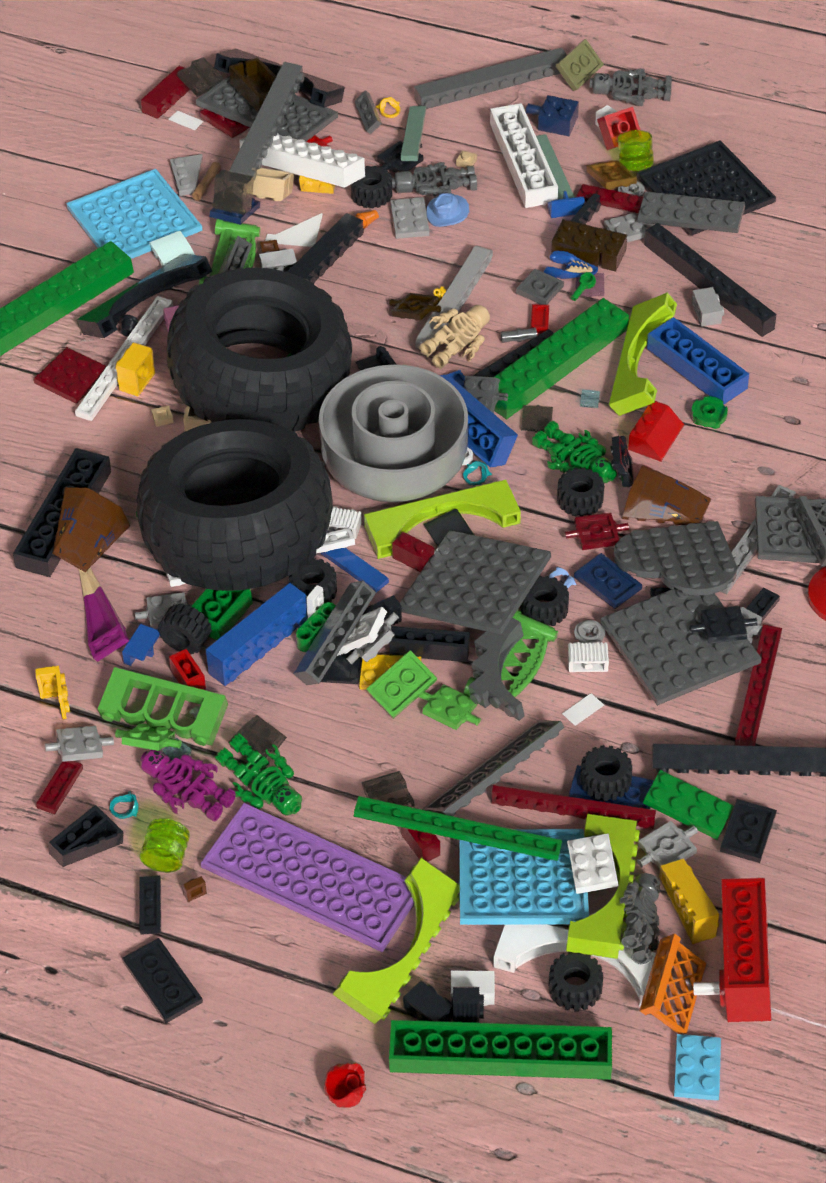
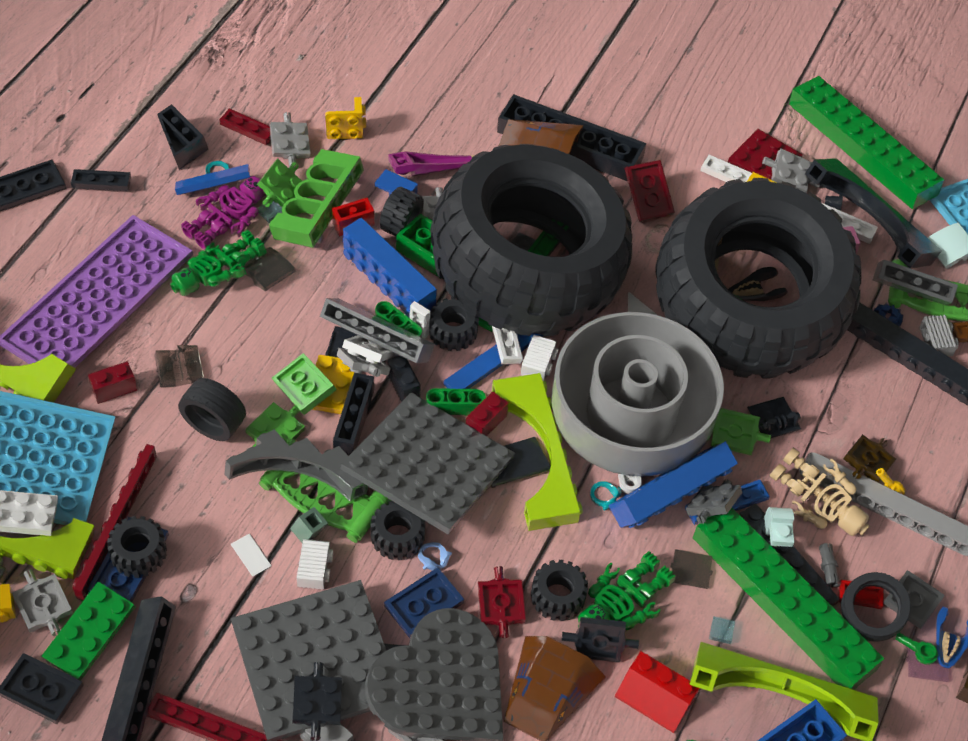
camera: 90 degrees right, 5 degrees up
(94, 351) = (790, 169): none -> light grey plate
(128, 448) = (649, 190): none -> dark red tile
(144, 792) = (212, 179): none -> blue tile
(164, 845) = (152, 185): clear neon green wheel -> none
(194, 888) = (108, 209): reddish brown plate -> none
(399, 574) = (446, 400): none -> green beam
(450, 739) = (212, 409): none -> black tyre
(457, 828) = (95, 403): green plate -> none
(494, 351) = (779, 526): none -> light aqua brick
(494, 767) = (179, 453): dark grey plate -> none
(554, 661) = (309, 525): none -> sand green brick
(565, 288) = (891, 585): none -> black tyre
(587, 627) = (351, 564): light grey gear -> none

